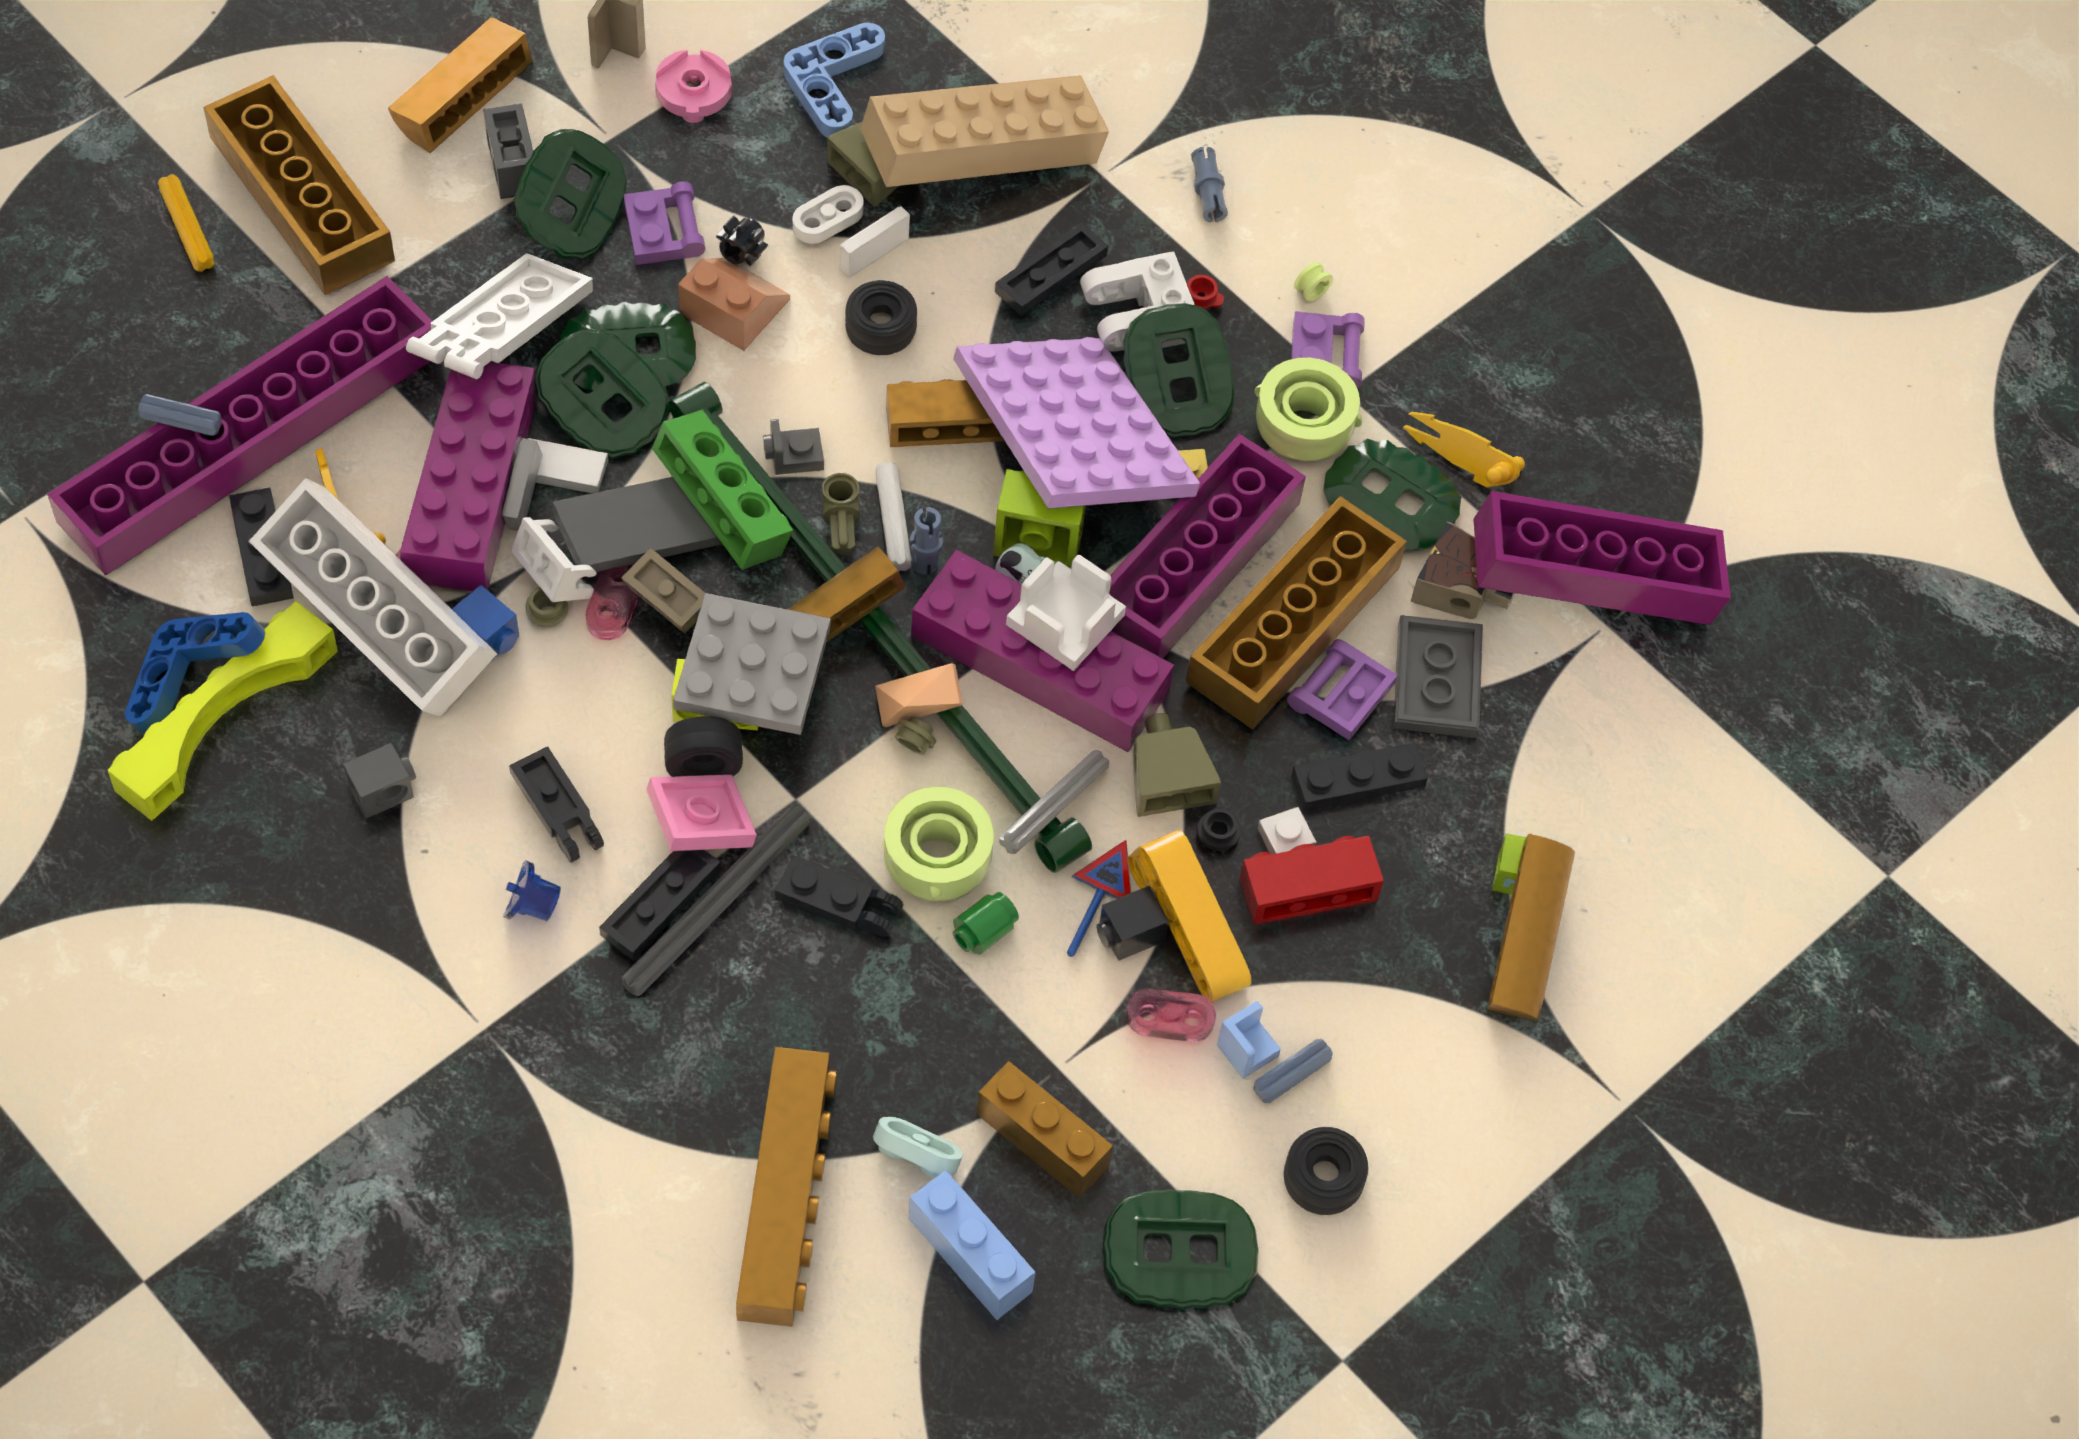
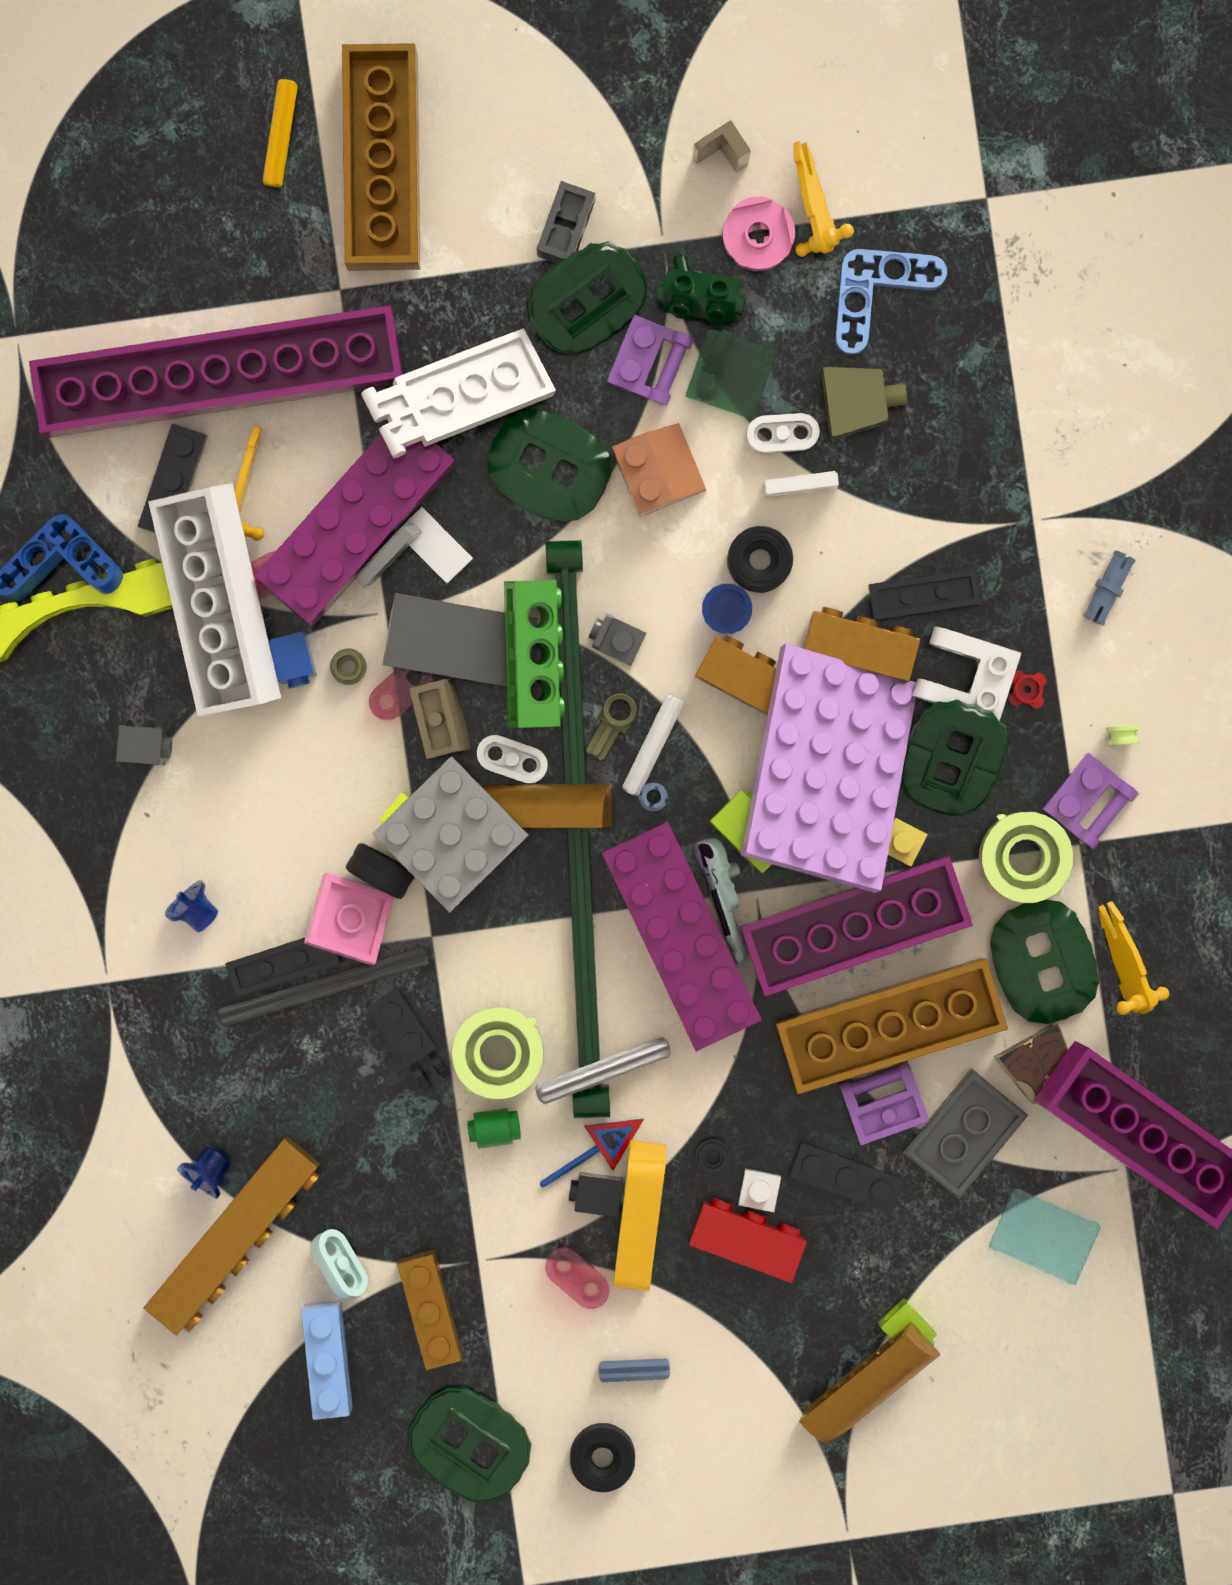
camera: 40 degrees right, 30 degrees up
(180, 414) = (160, 351): sand blue axle -> none
(461, 84) = (571, 122): brick -> none
(549, 564) = (367, 639): white hinge -> none
(555, 800) = (257, 837): black hinge -> none
(623, 375) = (474, 509): dark green piece -> none
(675, 145) = (699, 294): none -> dark green brick
(712, 1140) = (205, 1172): none -> clear blue piece
(741, 240) = (695, 423): black gear -> none
(745, 192) = (731, 373): none -> clear green hinge
(755, 55) = (823, 228): none -> yellow piece
(768, 588) = (512, 759): none -> white plate
(880, 363) = (727, 608): none -> clear blue piece
(915, 735) = (544, 946): olive plate -> none
(919, 695) = (564, 920): light nougat slope -> none
(983, 130) = (951, 441): tan brick -> none
(1031, 322) = (862, 643): none -> pearl gold brick
(1066, 609) = (705, 937): white panel -> none
(1172, 769) = (709, 1089): olive torso -> none
(1247, 1041) = (616, 1332): light blue panel -> none
(1582, 721) = (1044, 1236): none -> clear light blue piece

